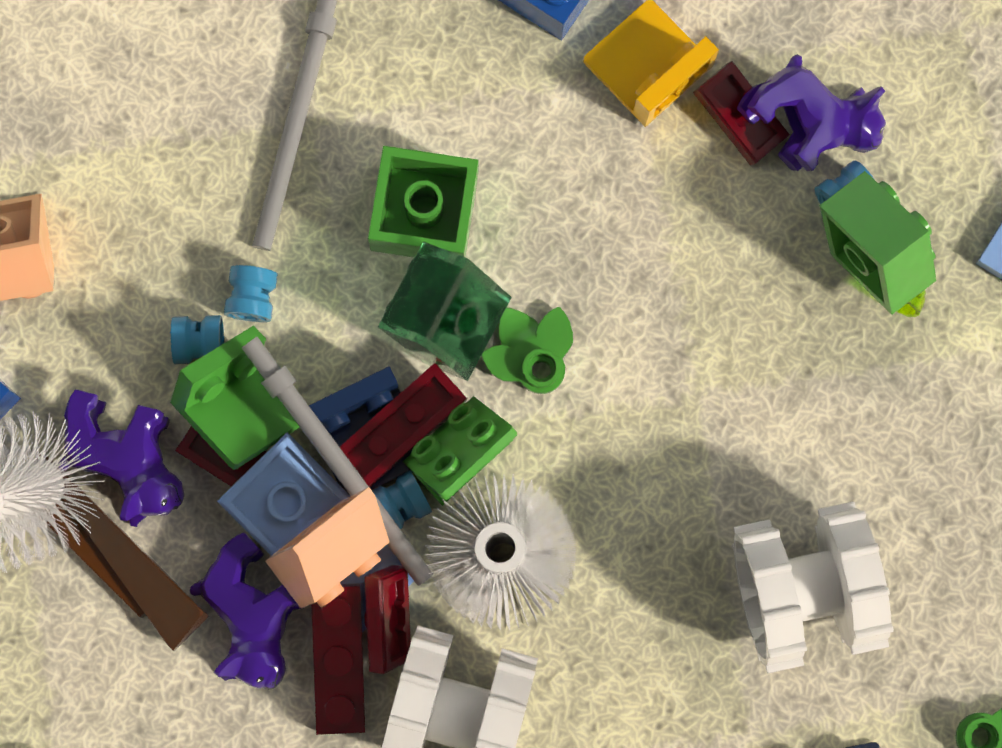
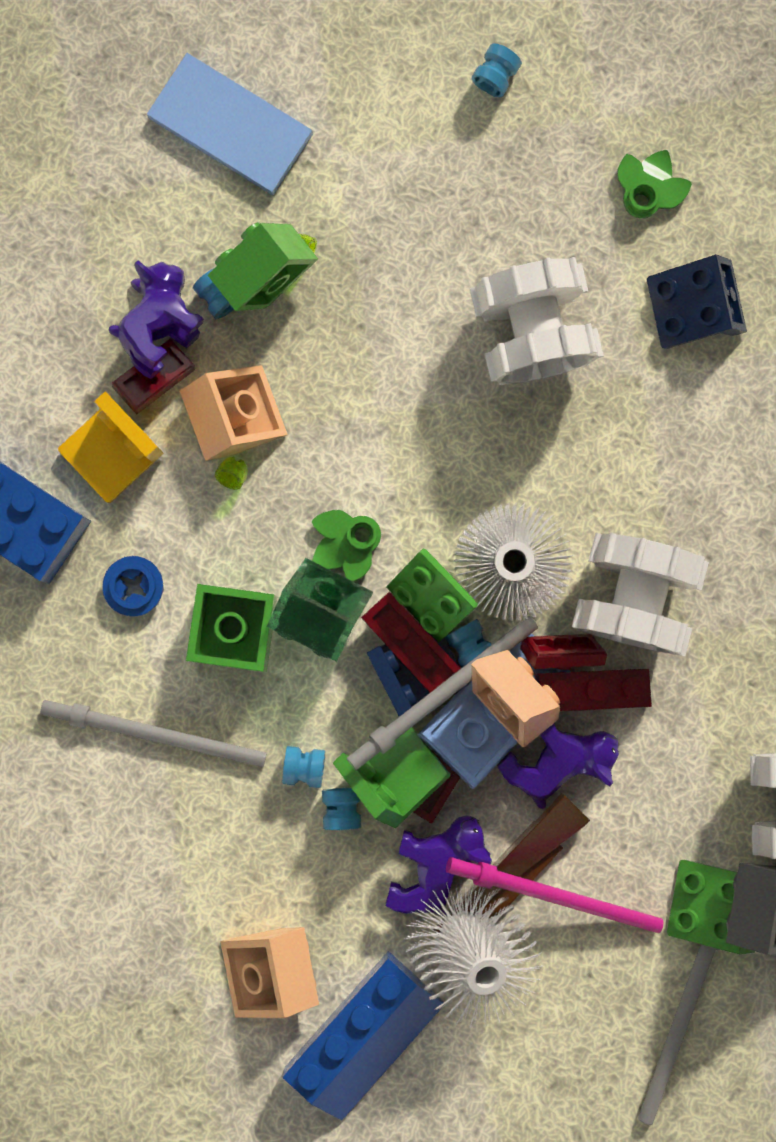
camera: 85 degrees left, 5 degrees up
(106, 513) = (488, 876): none -> dark pink bar
(476, 68) = (115, 589): none -> blue gear
(620, 209) = (231, 473): none -> clear neon green hinge
(697, 210) = (232, 411): none -> light nougat slope

